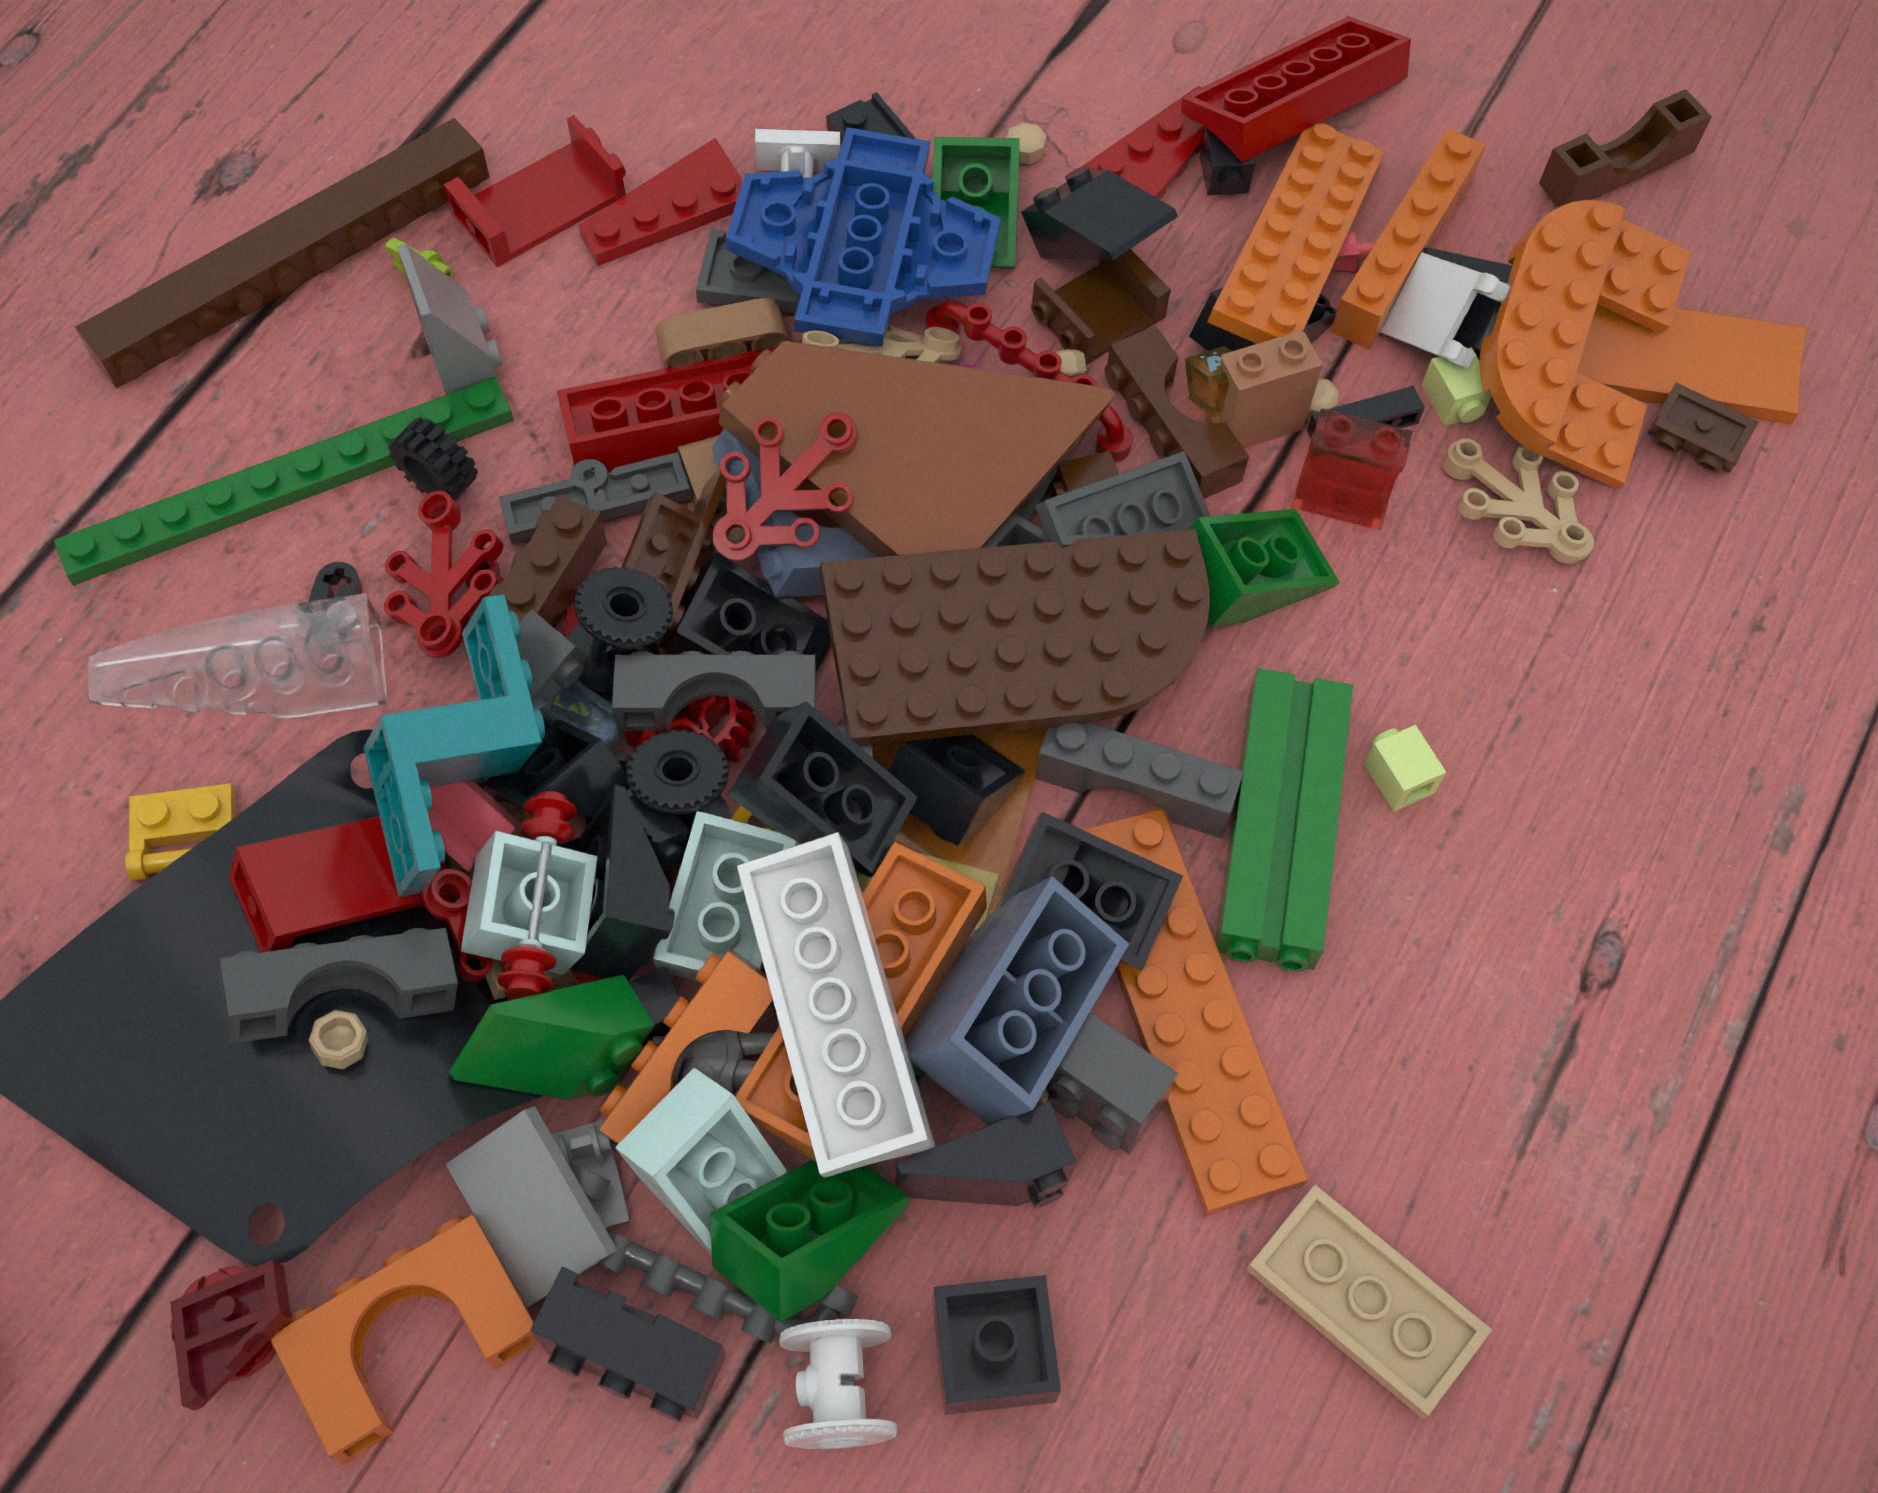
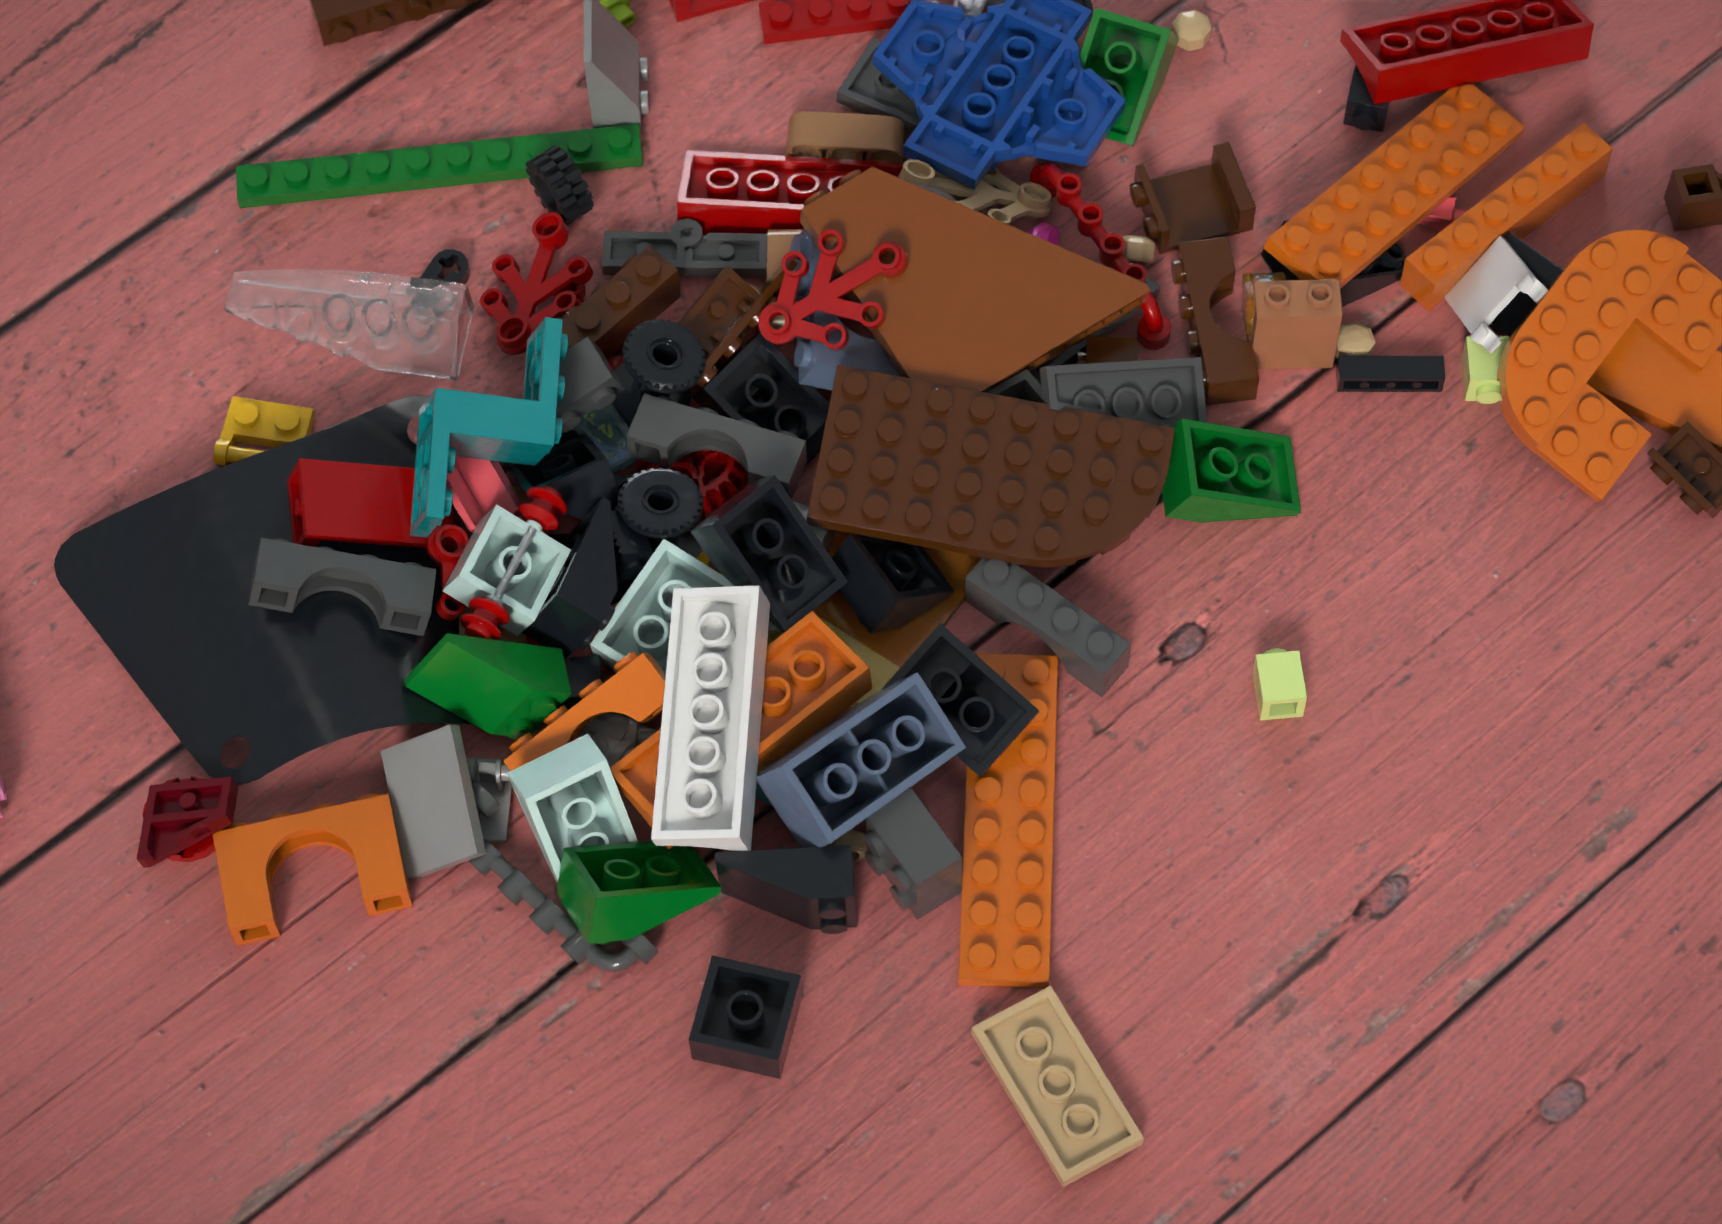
camera: 25 degrees right, 0 degrees up
(338, 1039) = (329, 627): tan tile -> none
(627, 1348) = (469, 927): black wedge -> none
(829, 1384) = (609, 1003): white hose -> none
(1093, 216) = (1212, 120): black slope -> none
(1154, 151) = (1293, 77): red wing -> none
(1285, 821) = (1156, 695): green brick -> none
(1351, 468) = (1343, 415): clear red panel -> none
(1561, 534) = (1496, 491): tan plant -> none

